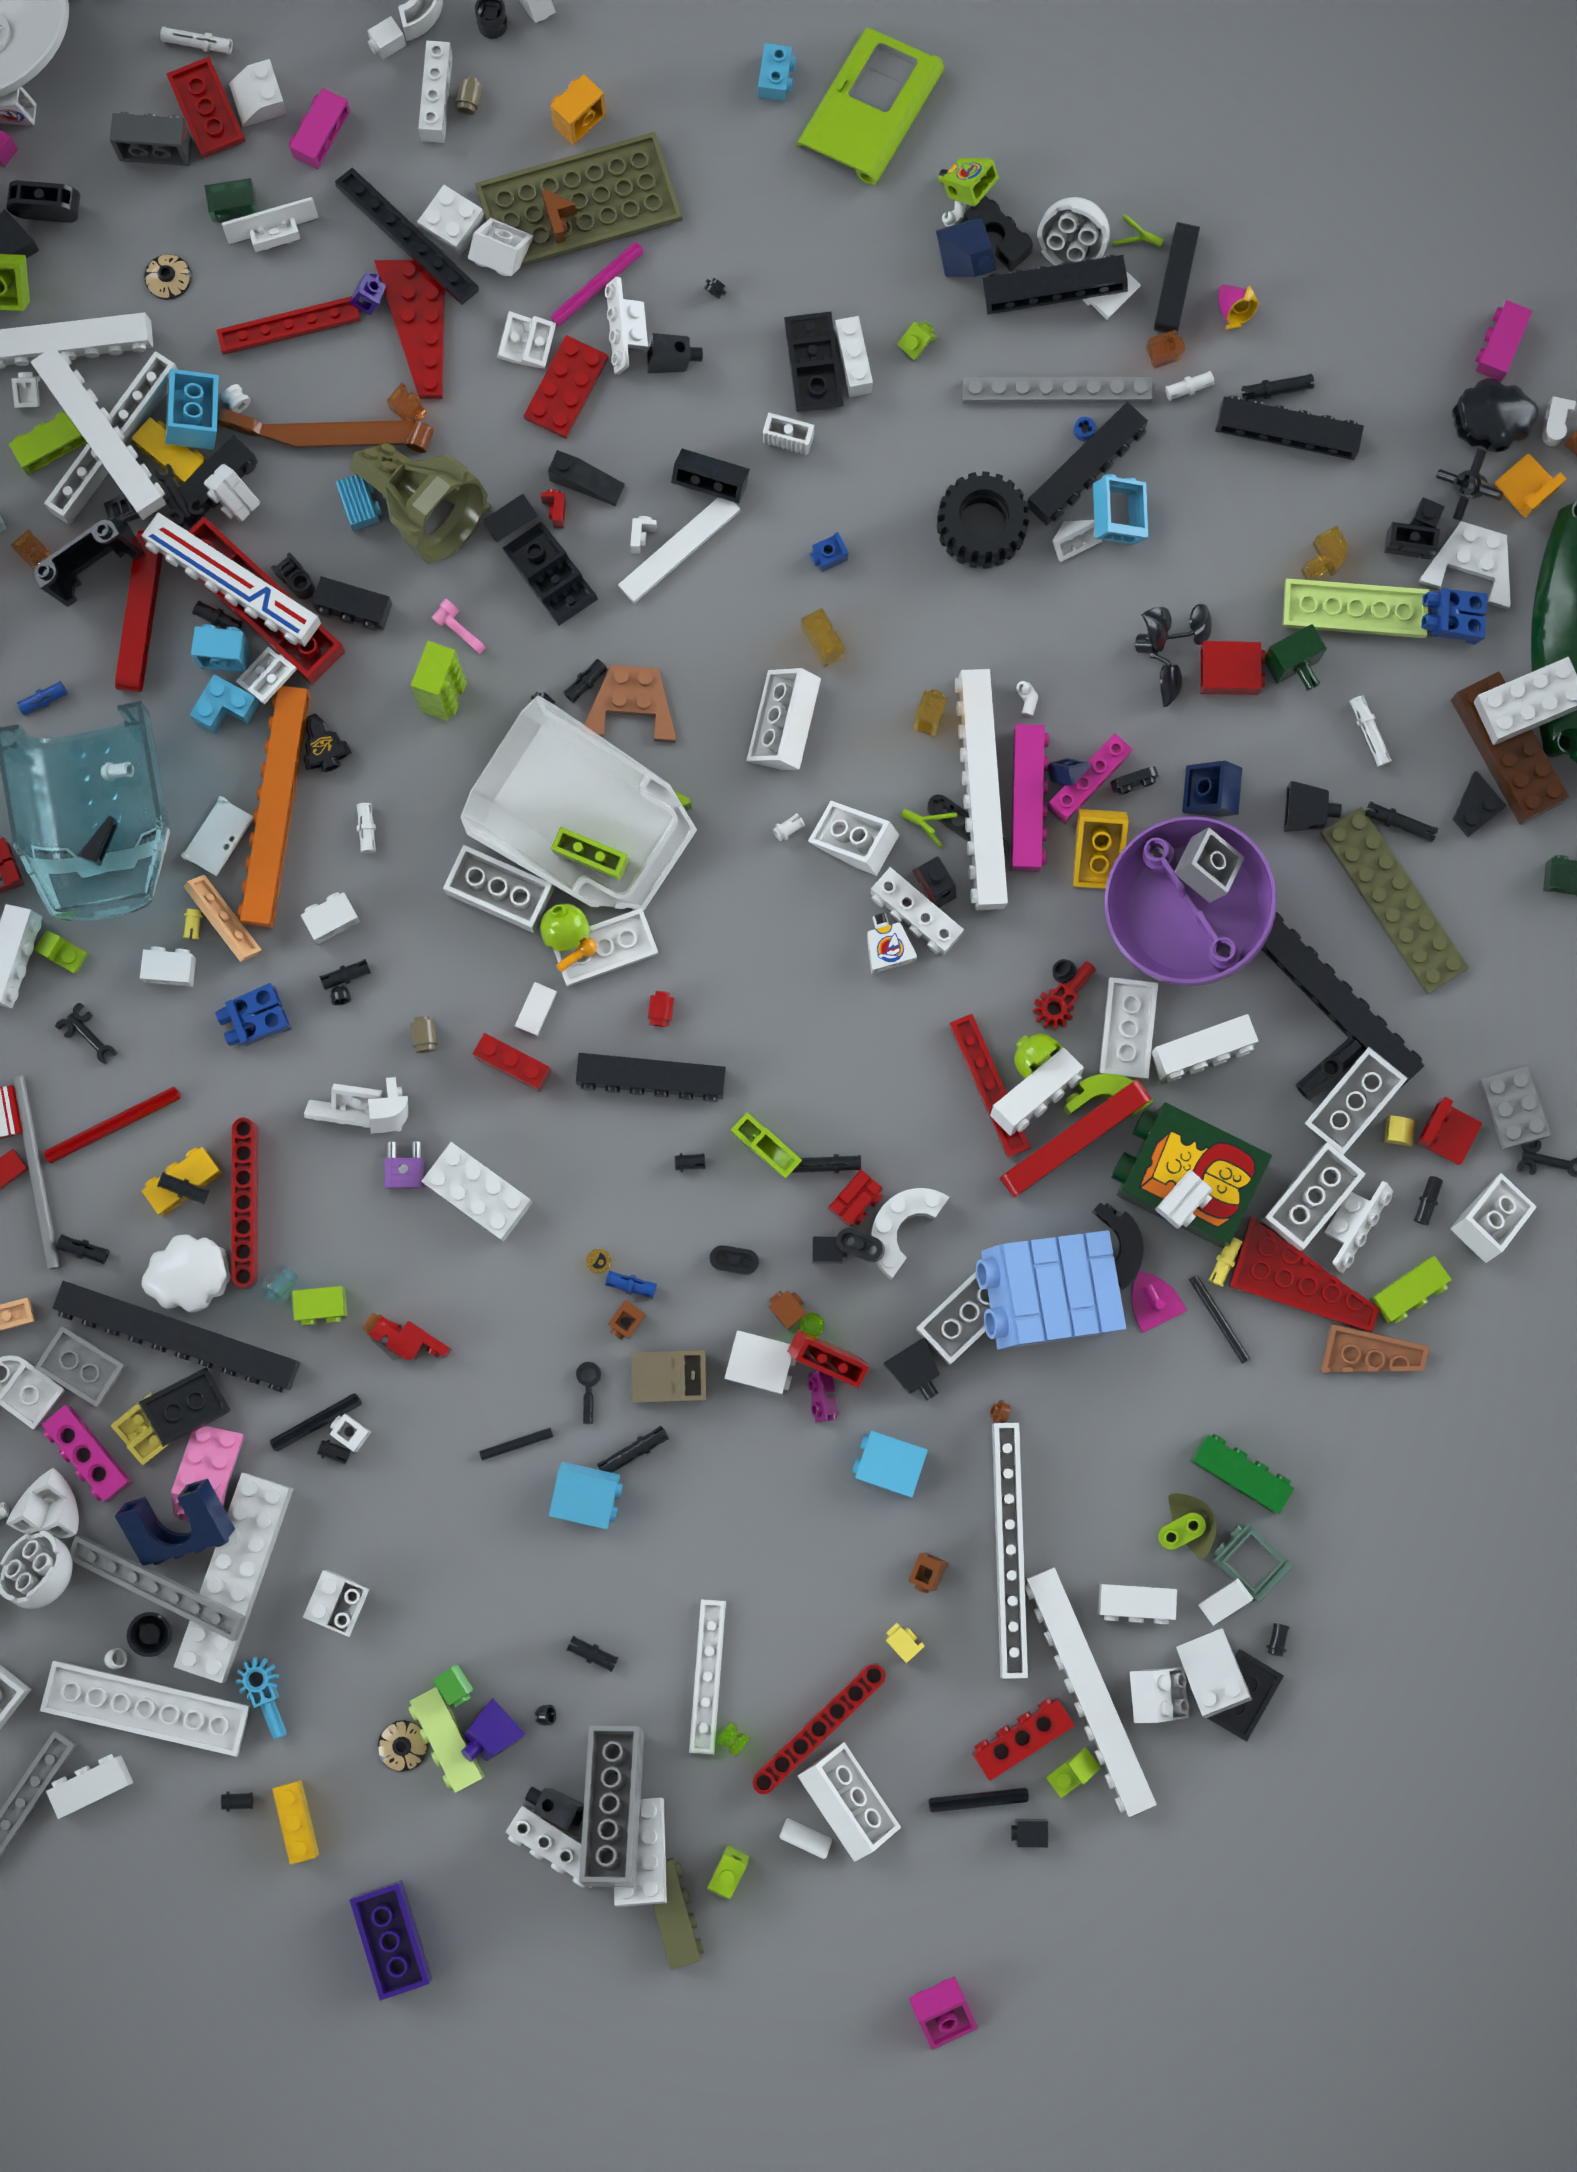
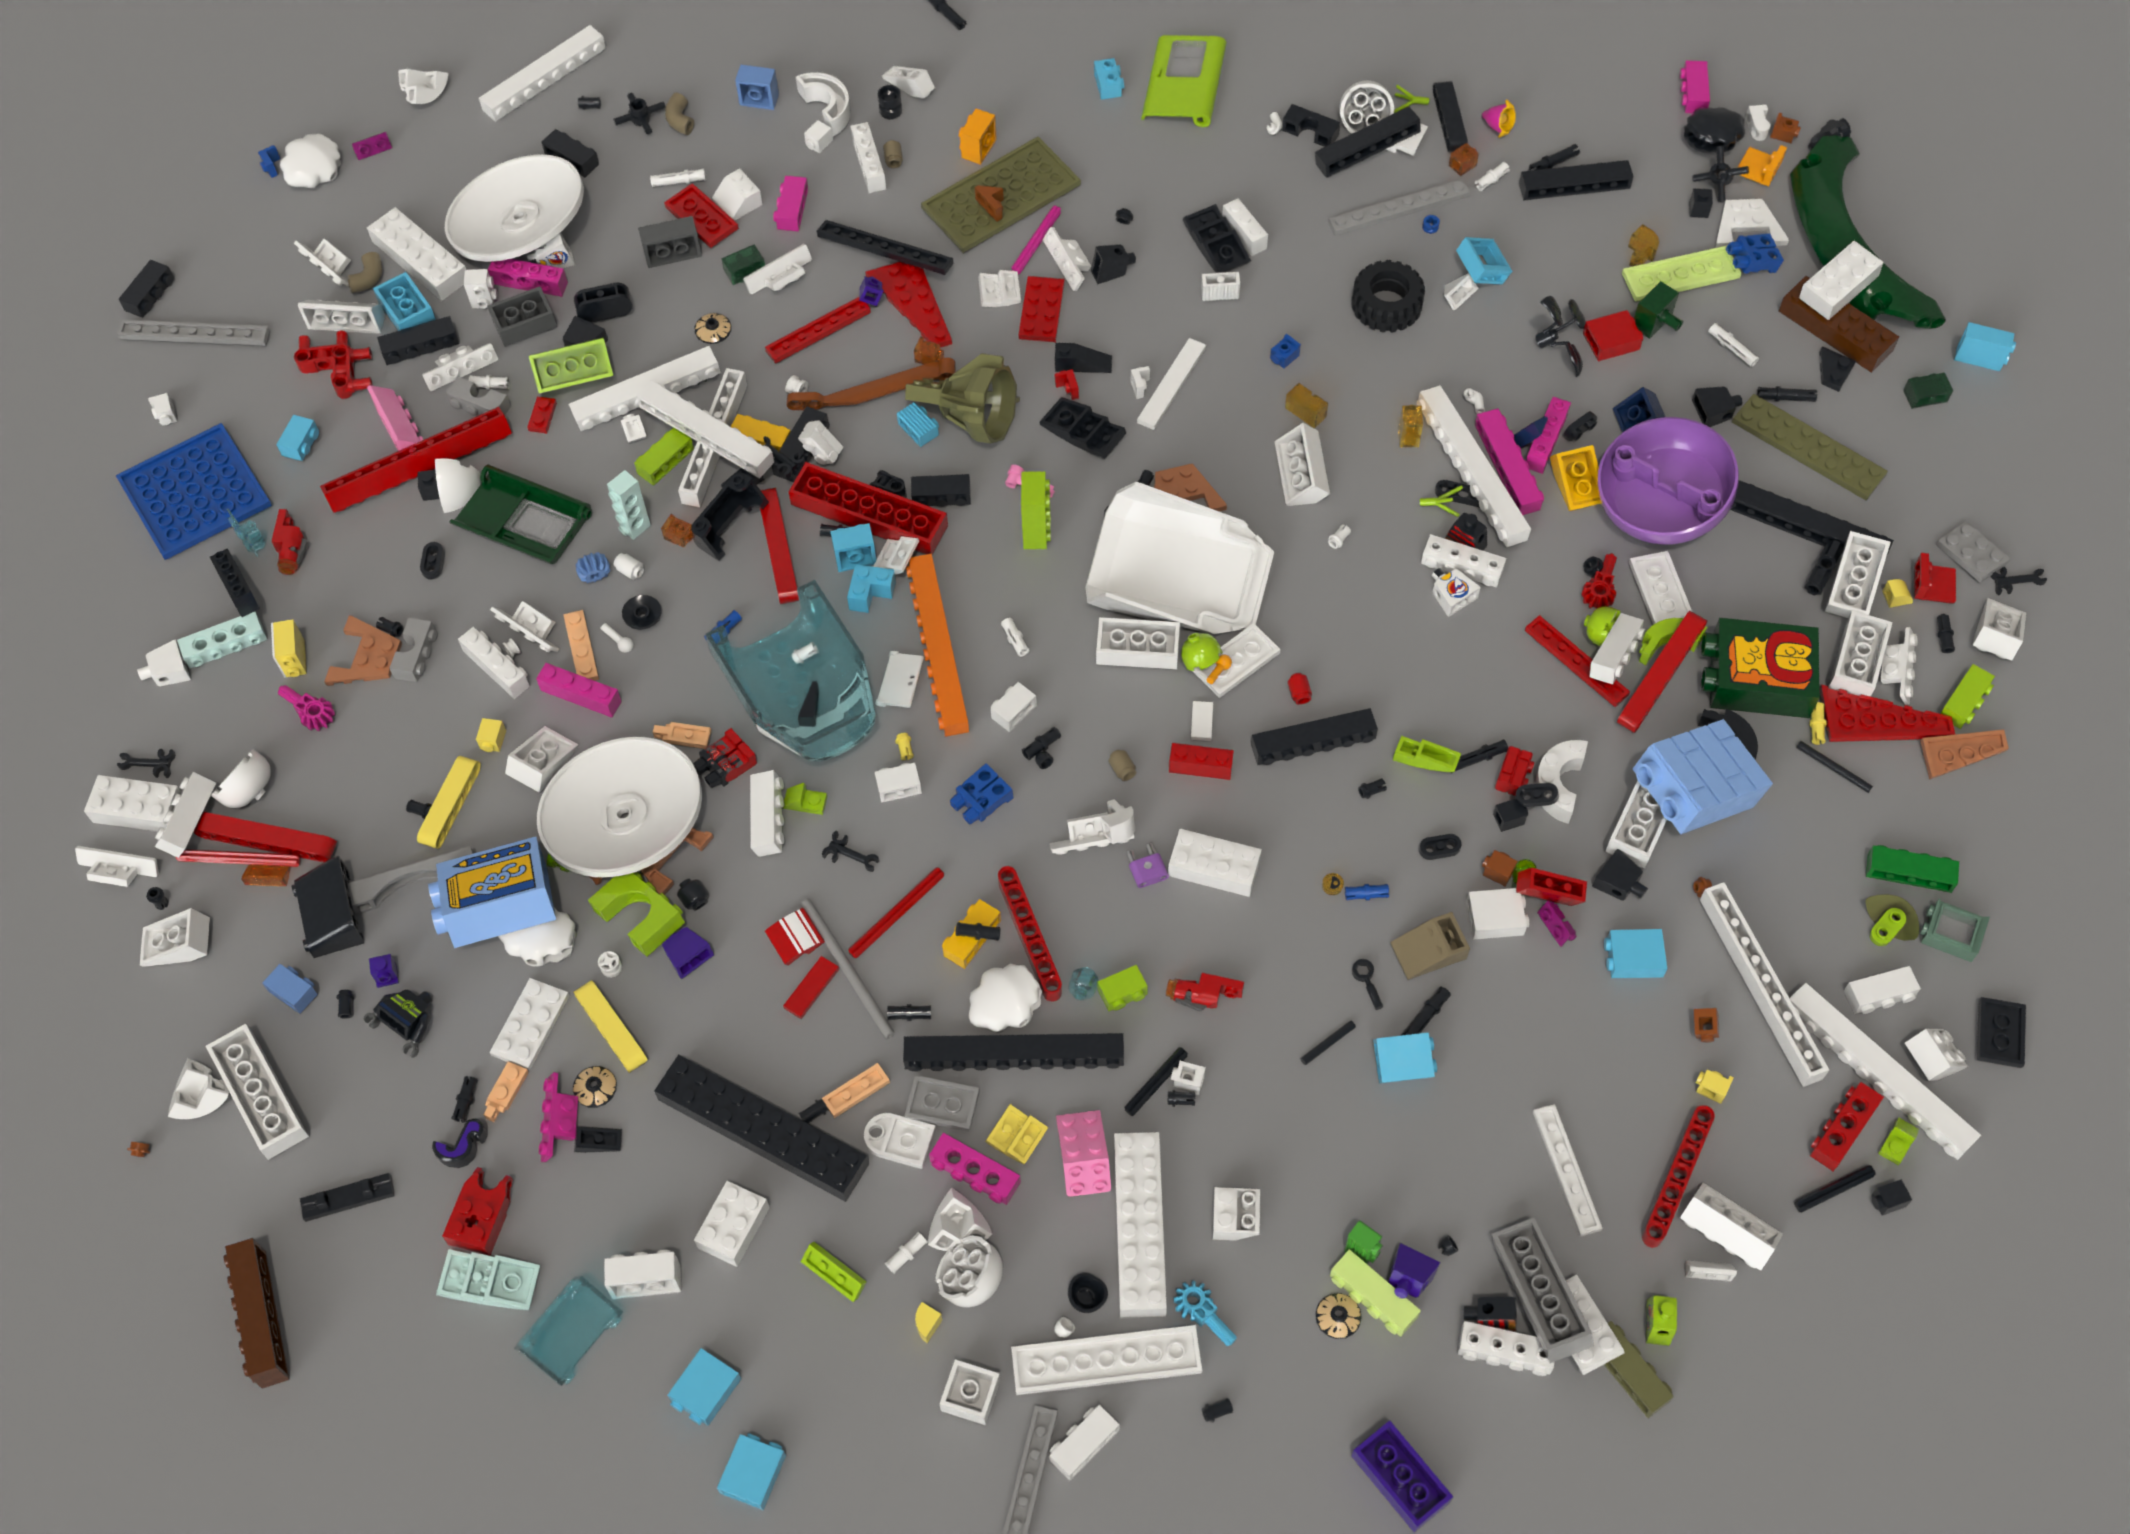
camera: 15 degrees left, 20 degrees down
(156, 1543) = (1064, 1216): dark blue arch -> none
(157, 1588) = (1083, 1248): light grey plate -> none
(184, 1407) = (1043, 1102): black plate -> none
(192, 409) = (769, 397): medium azure brick -> none
(222, 918) = (922, 731): light nougat plate -> none
(230, 579) = (846, 493): white brick -> none
(295, 1822) = (1276, 1407): yellow brick -> none
(323, 746) = (958, 593): black rock -> none
(451, 221) = (914, 227): white brick -> none
(499, 247) = (957, 233): white slope -> none
(509, 518) = (1036, 400): black hinge -> none
(590, 854) = (1199, 594): lime brick -> none
(592, 1653) = (1464, 1183): black pin -> none
(629, 1311) = (1376, 911): dark orange brick -> none
(710, 475) = (1175, 328): black brick -> none
(728, 1735) = (1607, 1207): clear neon green wheel -> none
(854, 837) = (1393, 526): white slope -> none
(917, 338) = (1284, 204): lime bracket -> none
(943, 2013) = (1895, 1369): dark pink slope -> none
(966, 249) = (1295, 139): dark blue slope -> none
(969, 179) = (1276, 98): lime torso -> none
(1087, 463) = (1445, 240): black brick -> none
(1154, 1301) = (1780, 770): dark pink shield -> none
(1184, 1199) = (1771, 675): white brick -> none
(1204, 1047) = (1726, 580): white brick -> none
(1209, 865) = (1670, 448): light grey brick -> none
(1213, 1673) = (1973, 1020): white slope -> none
(1225, 1601) = (1951, 964): white tile -> none
(1278, 1640) = (2006, 982): black pin -> none
(1412, 540) = (1699, 218): black brick -> none

